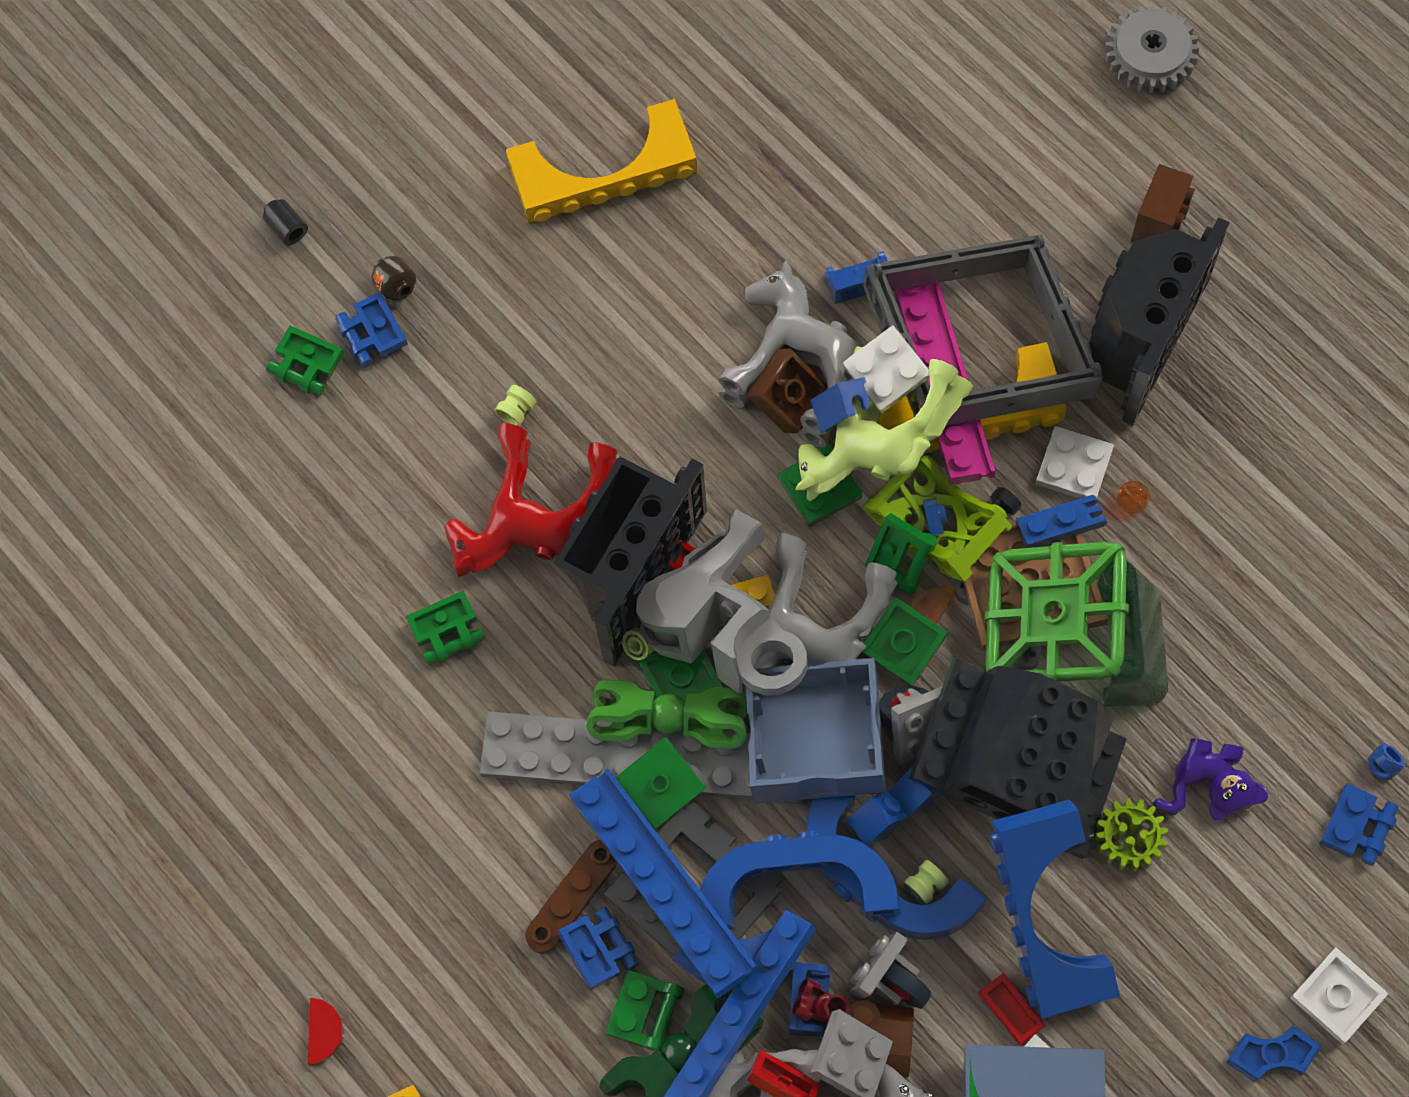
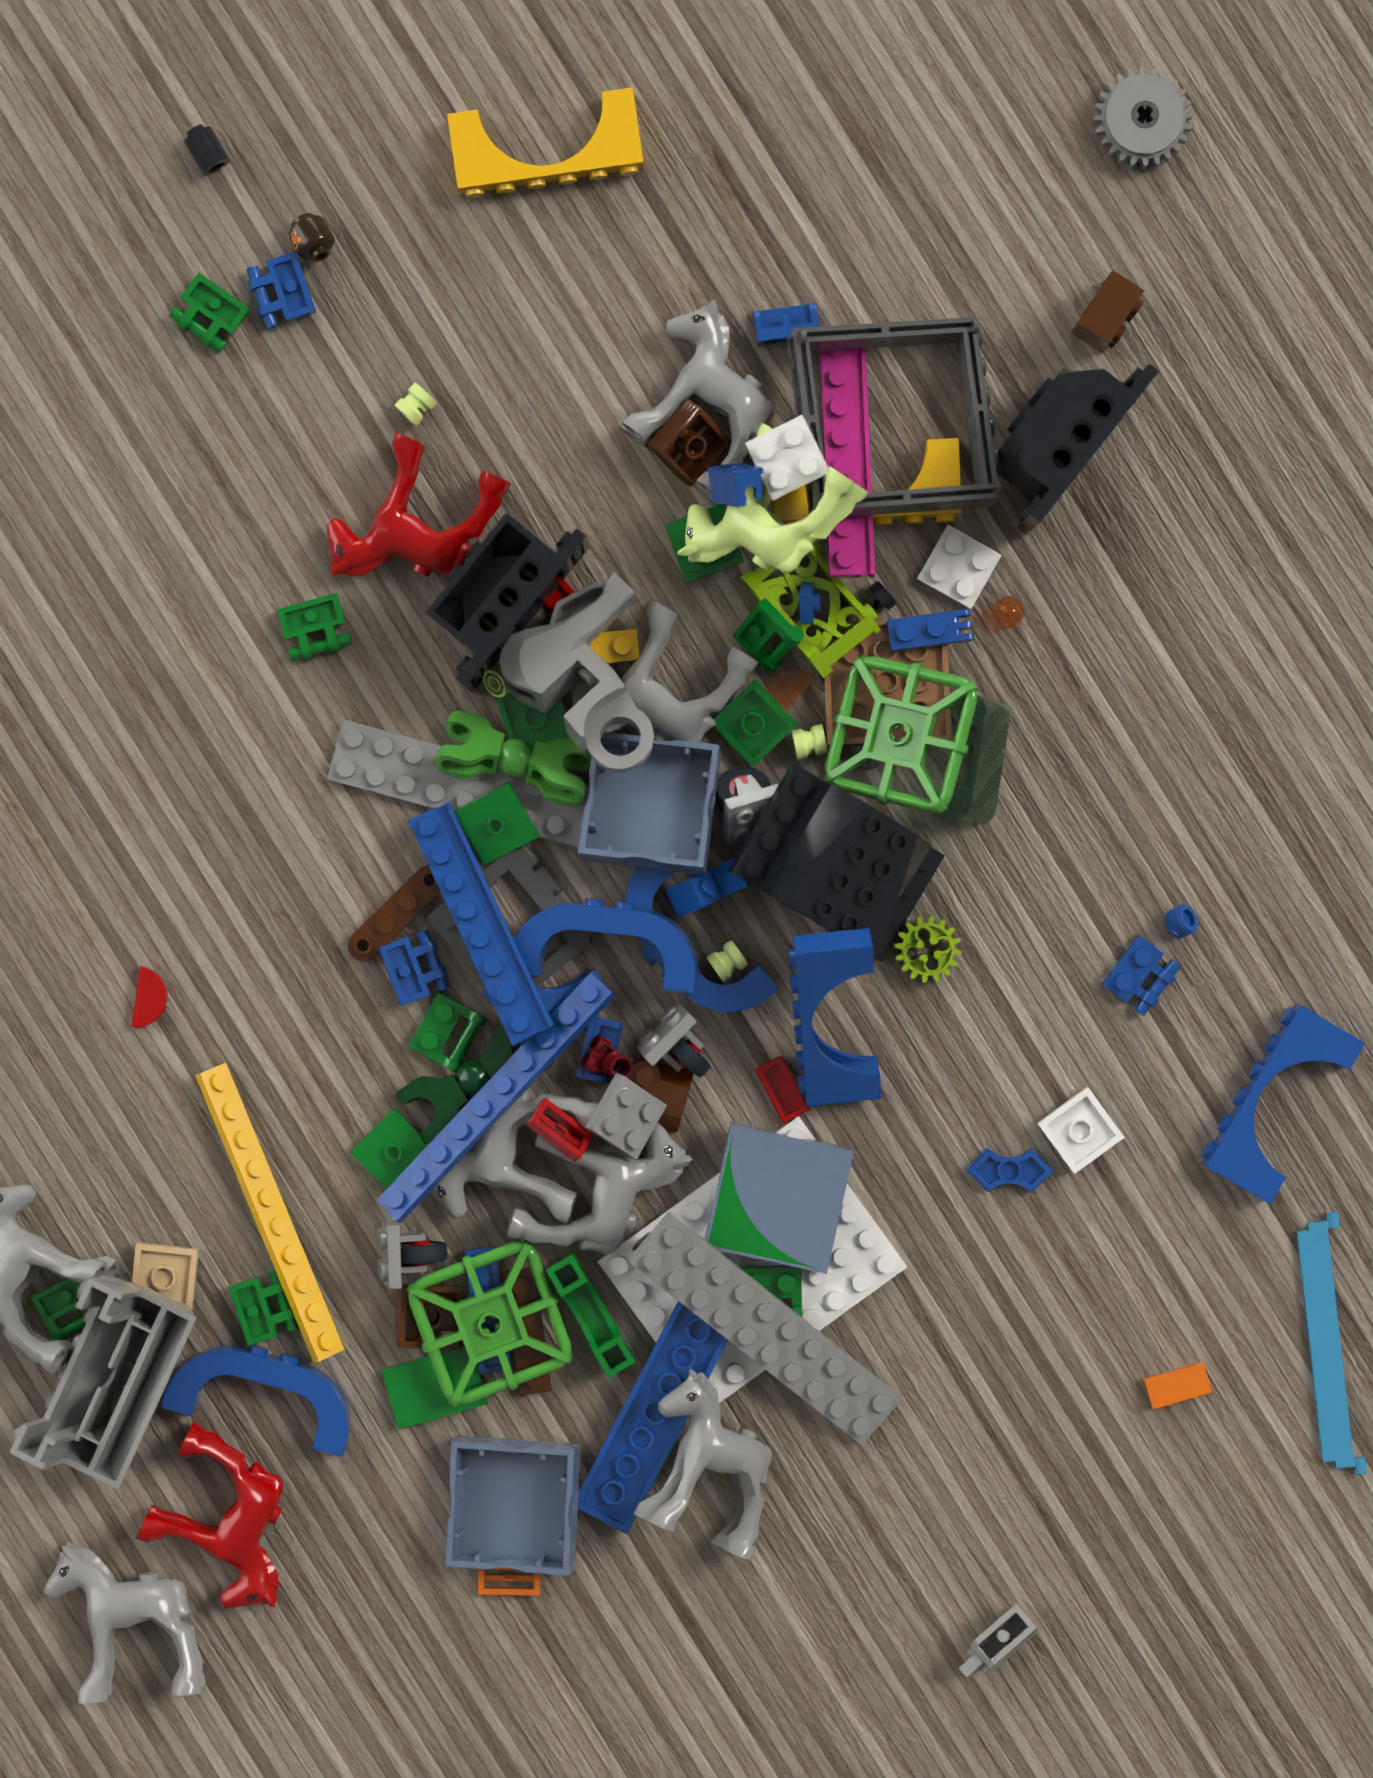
camera: 10 degrees right, 20 degrees up
(966, 649) = (809, 742): none -> yellowish green wheel
(1230, 788) = (1029, 922): dark purple animal -> none

